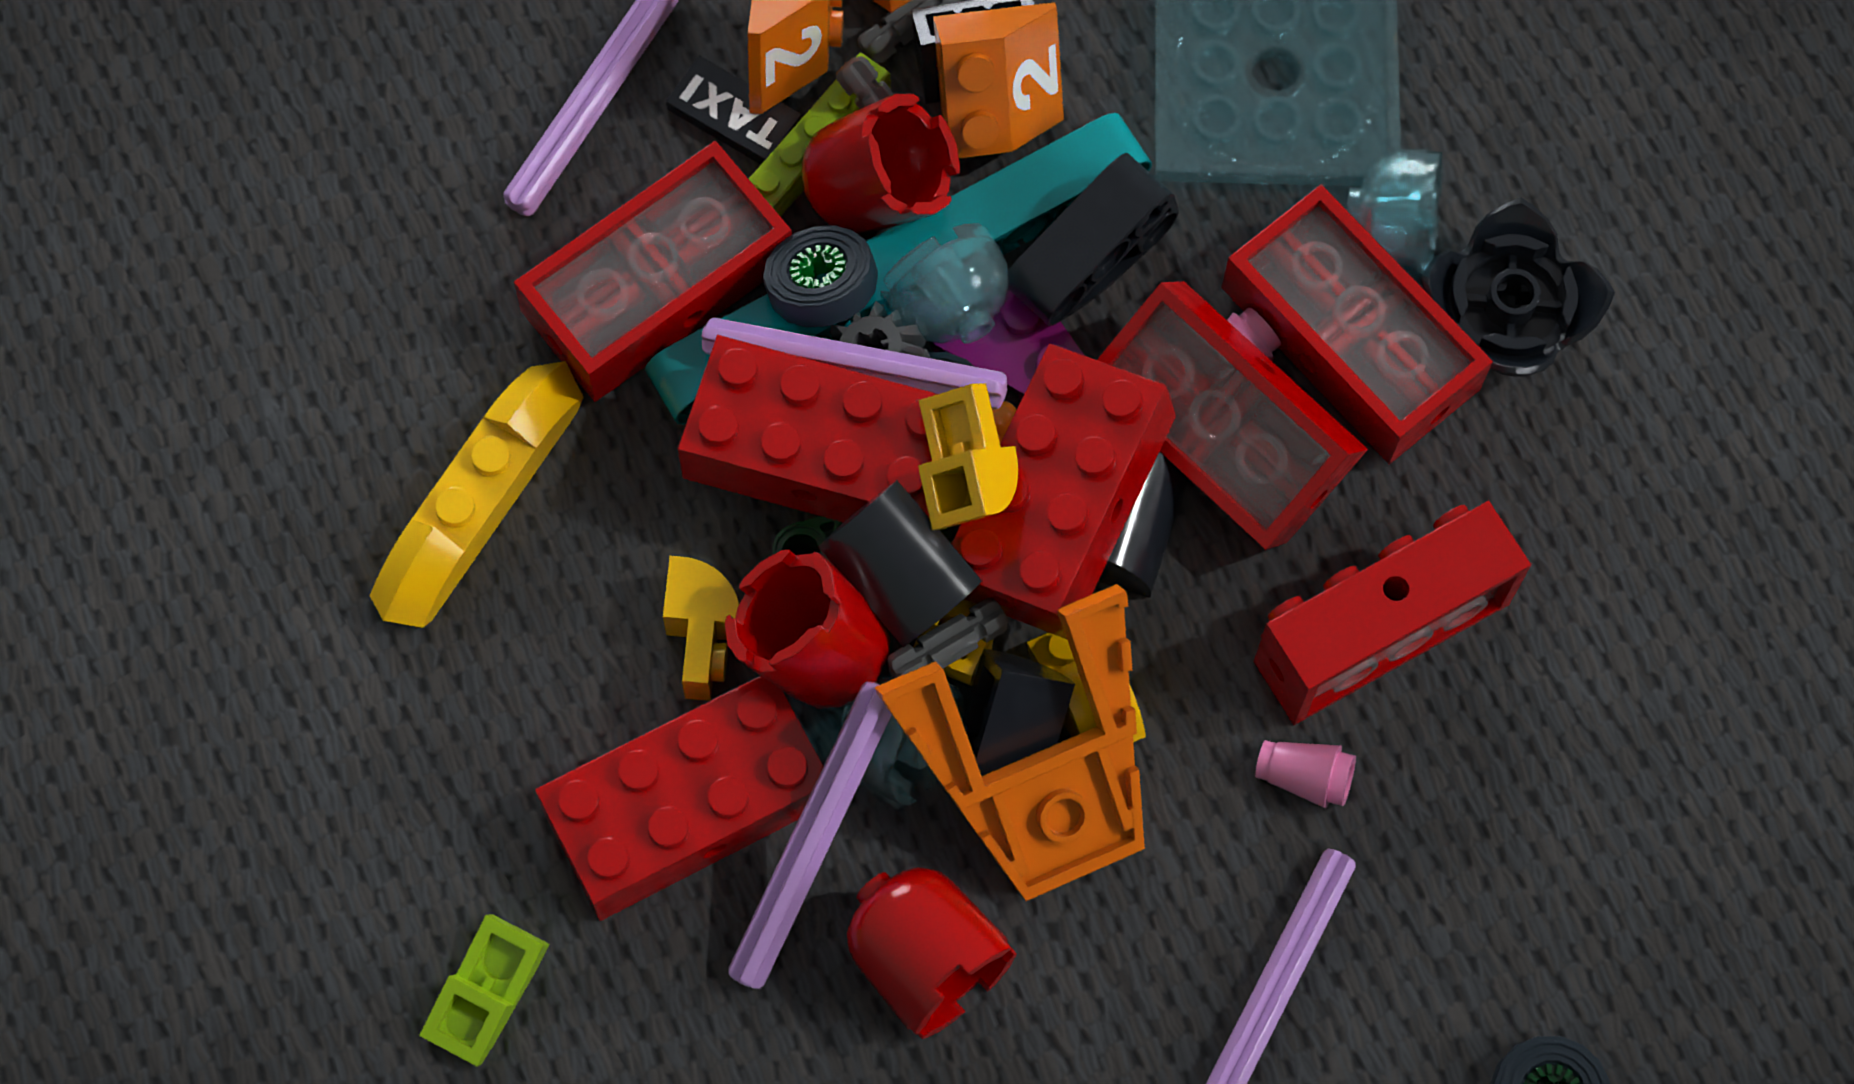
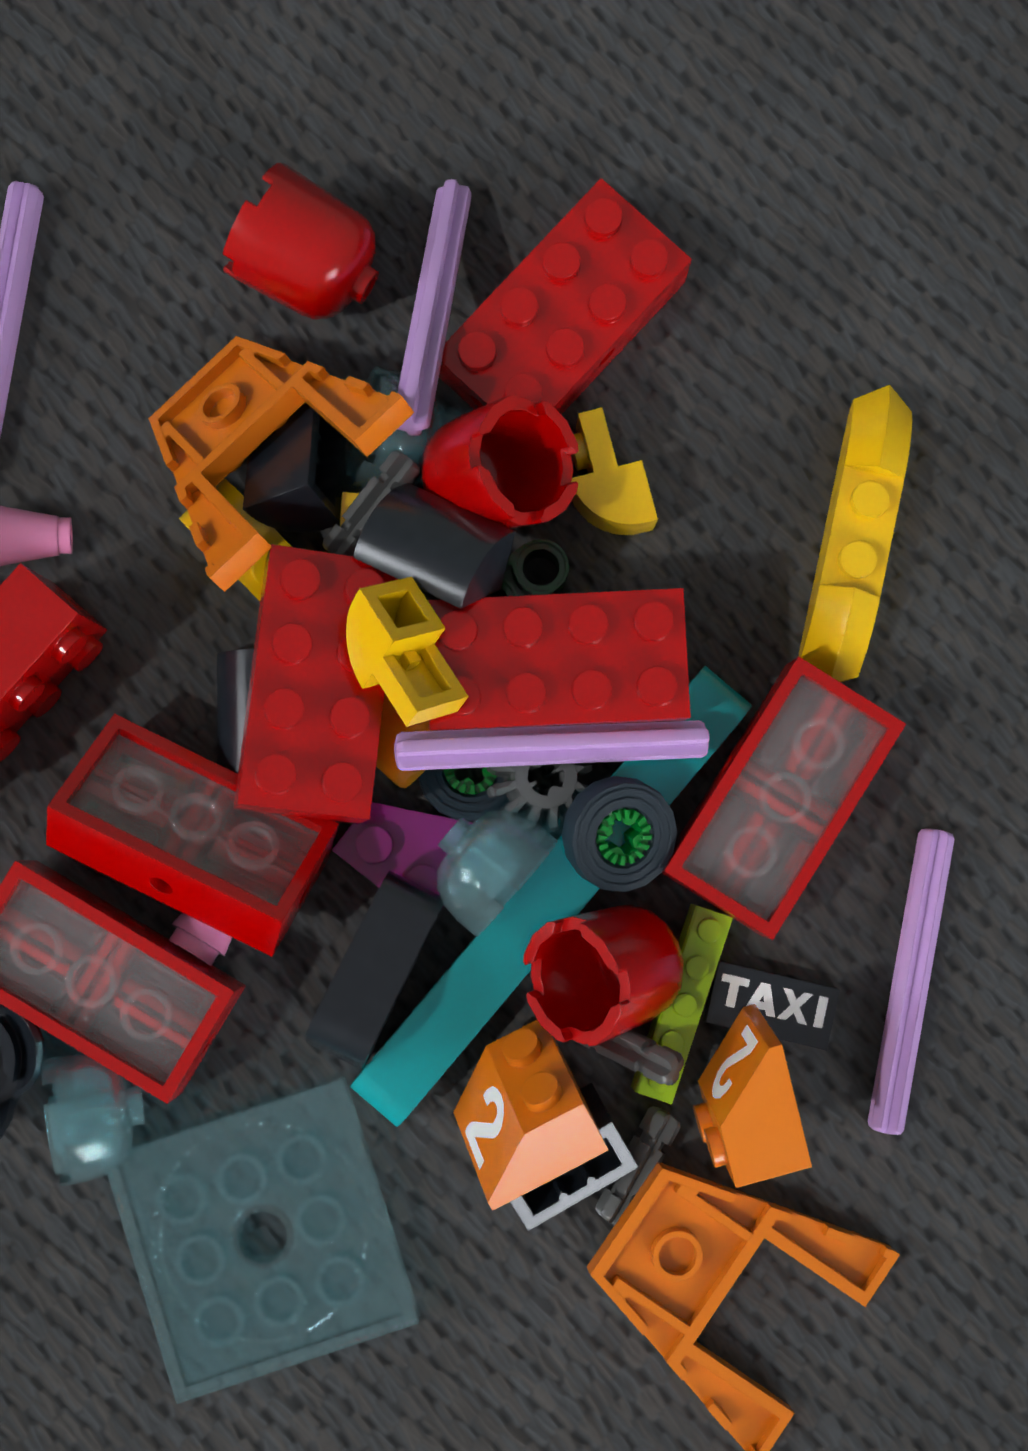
camera: 160 degrees right, 15 degrees up
(484, 990) = (670, 109): lime slope -> none

